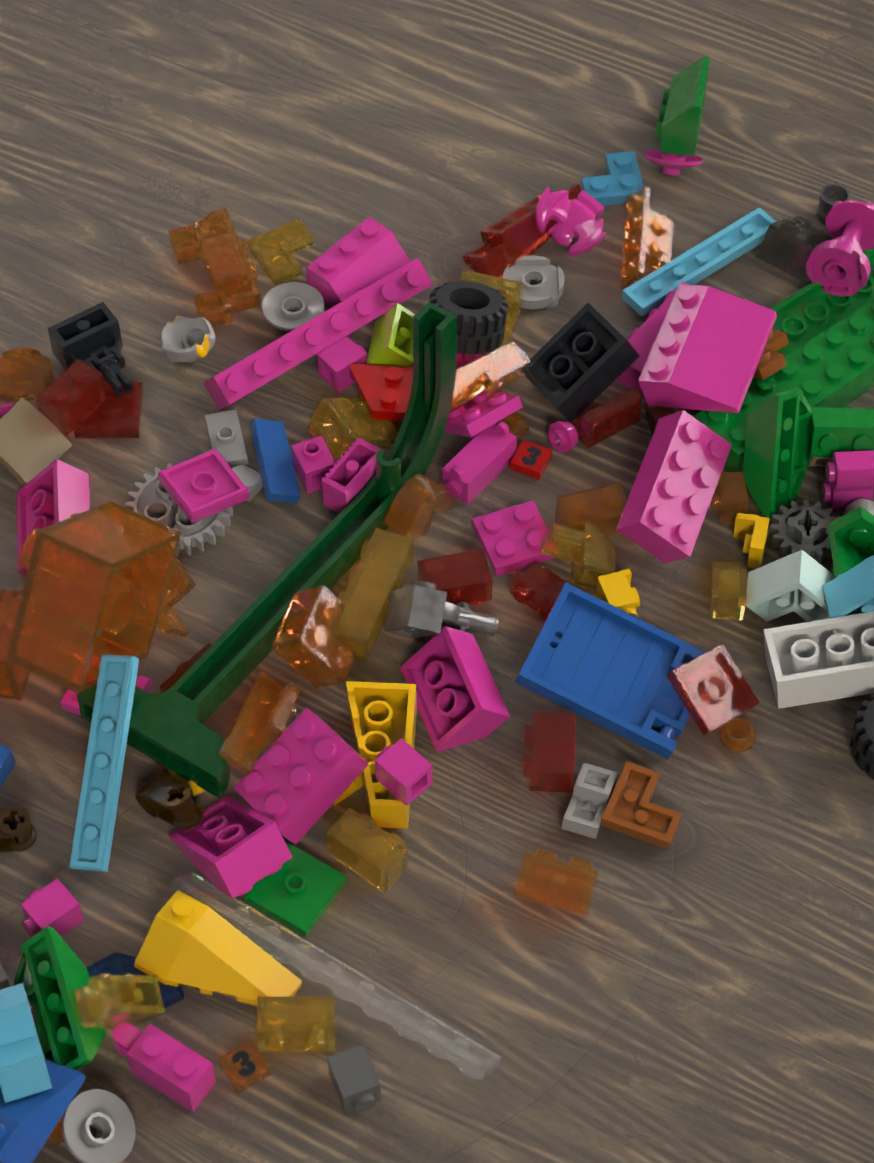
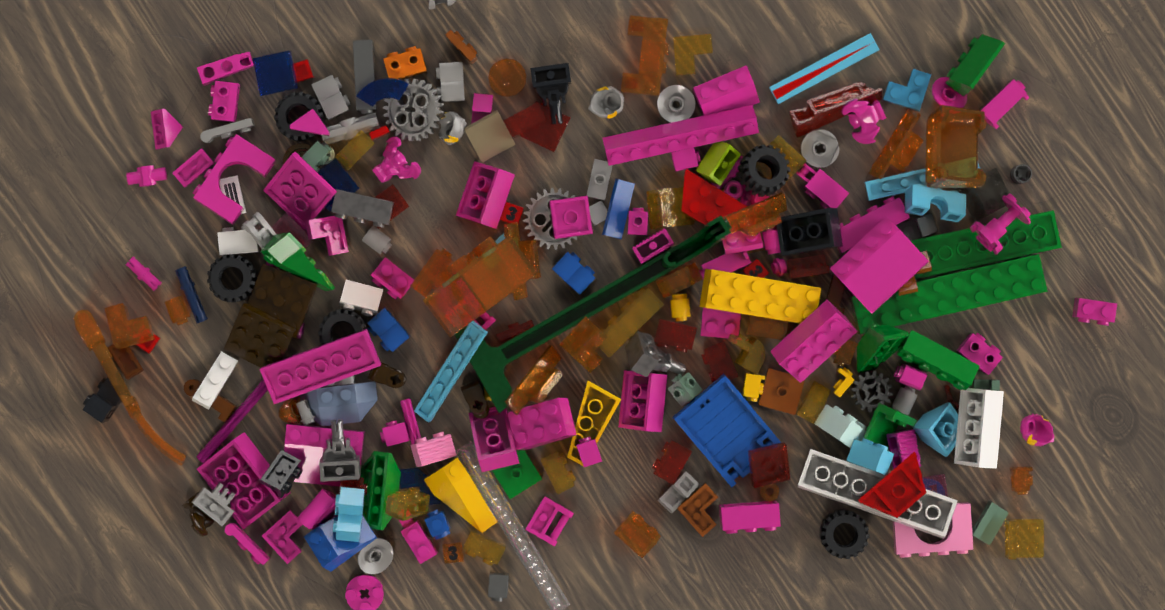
camera: 25 degrees right, 35 degrees up
(90, 907) = (410, 420): none -> dark pink axle
(127, 903) = (433, 450): none -> bright pink brick
(193, 1022) = (437, 524): none -> blue brick
(245, 564) = (573, 272): none -> blue brick
(380, 936) = (543, 518): none -> dark pink plate
(440, 538) = (680, 307): none -> yellow brick
(481, 201) = (824, 68): none -> medium azure tile
(510, 641) = (684, 388): none -> sand green brick
(536, 409) = (771, 241): none -> dark pink brick
(539, 466) = (758, 296): none -> yellow brick
(554, 313) = (822, 187): none -> dark pink brick
(669, 593) = (781, 392): none -> dark orange plate
(712, 201) = (954, 148): none -> clear orange windscreen
(727, 769) = (749, 516): none -> dark pink brick
(751, 143) = (1003, 102): none -> dark pink brick
(758, 266) = (950, 203): none -> medium azure arch

